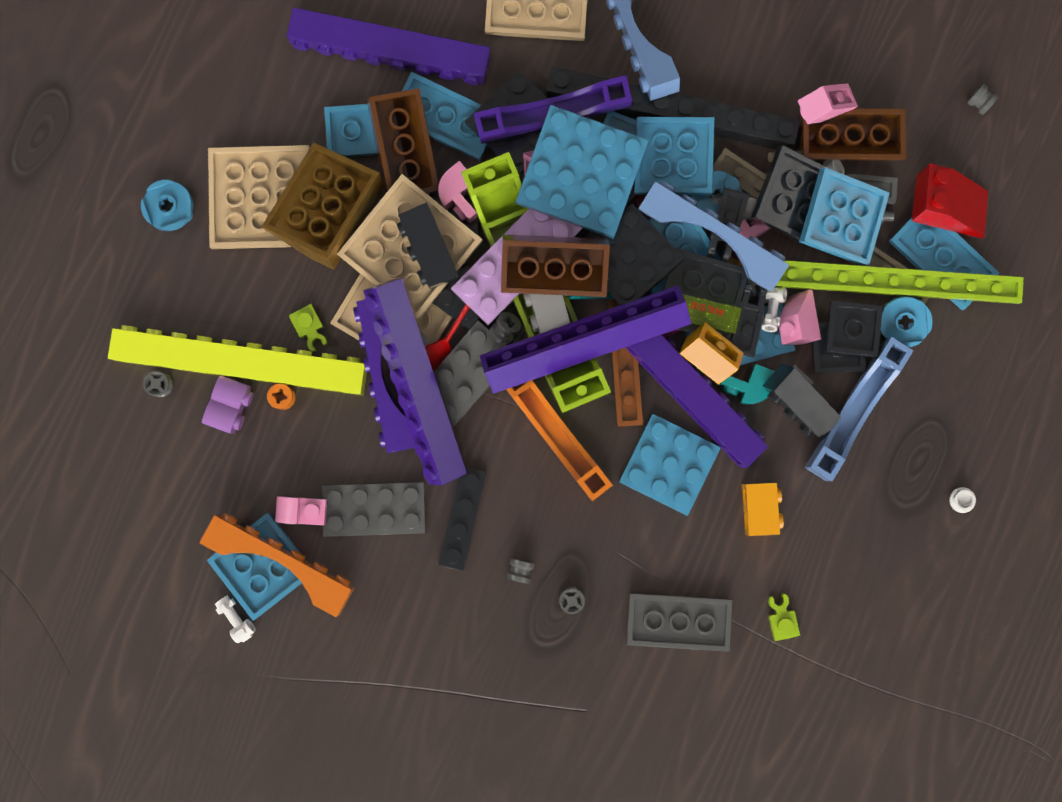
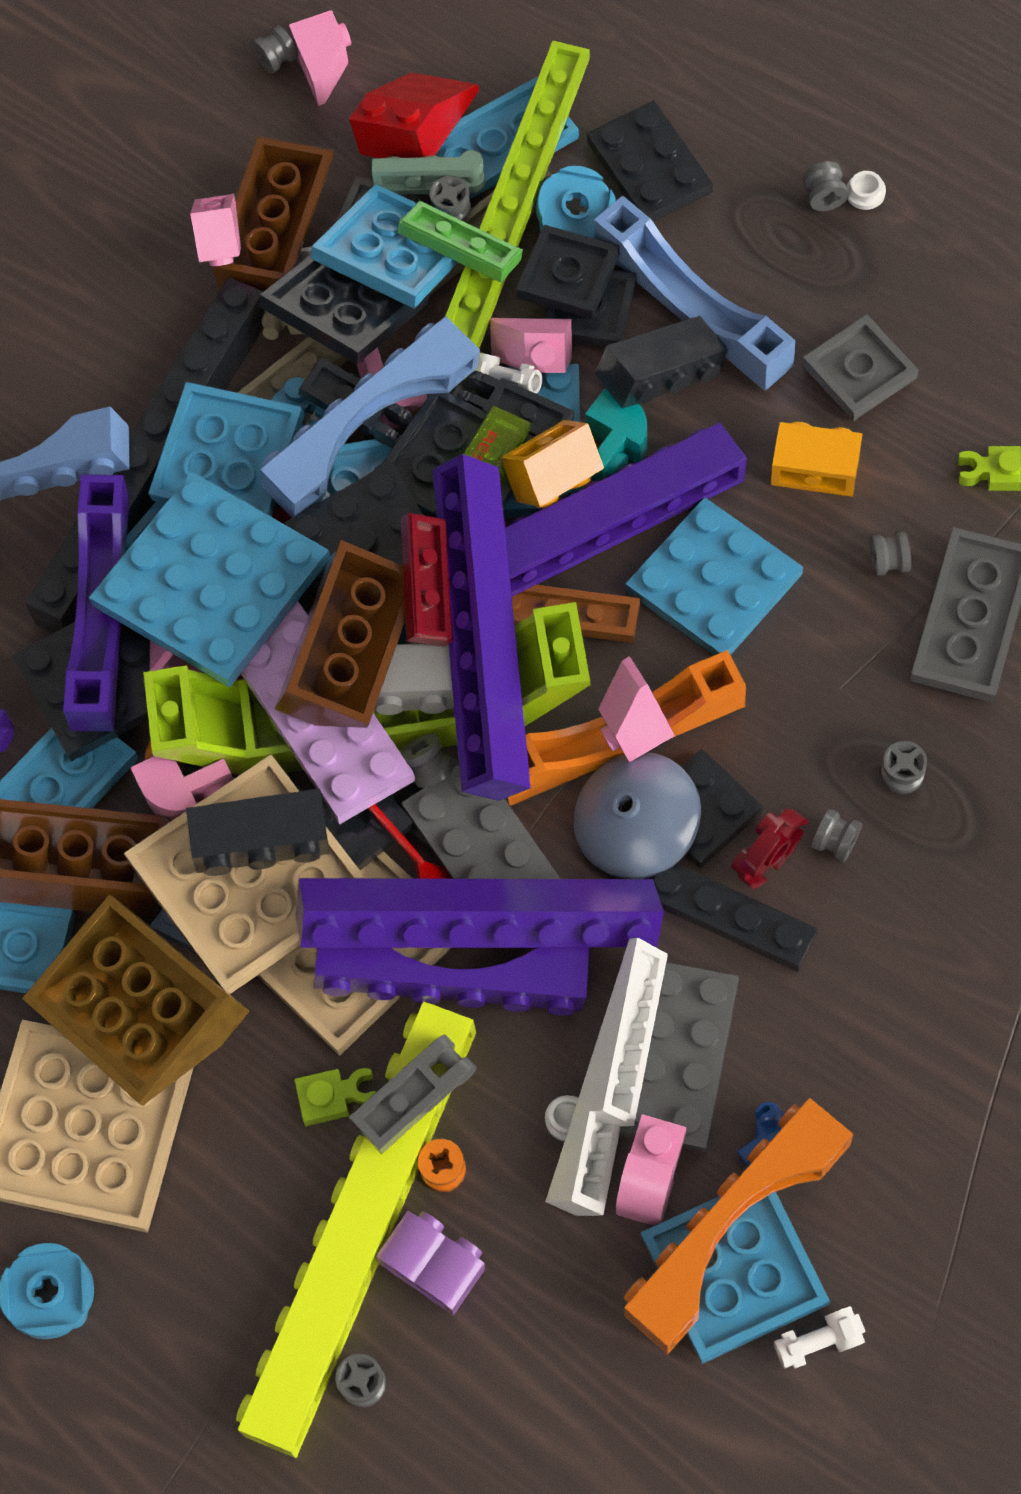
camera: 70 degrees left, 20 degrees down
(306, 371) = (411, 1094): none -> dark grey plate
(324, 457) = (559, 1116): none -> white plate
(343, 478) = (610, 1085): none -> white slope
(344, 568) = (767, 1117): none -> blue arm
(499, 535) = (775, 844): none -> dark red plate
(510, 469) = (652, 832): none -> sand blue dish
(522, 489) = (724, 807): none -> black plate
(557, 440) = (632, 714): none -> bright pink slope
(601, 301) = (426, 580): none -> dark red tile
(707, 565) = (890, 553): none -> dark grey wheel
(832, 522) = (860, 367): none -> dark grey plate
(855, 257) = (460, 241): none -> bright green tile
(892, 238) = (451, 190): none -> dark grey wheel
(904, 224) = (418, 174): none -> sand green plate
(953, 359) = (649, 161): none -> black plate
(958, 474) = (825, 186): none -> dark grey wheel
(987, 130) = (321, 52): none -> bright pink slope

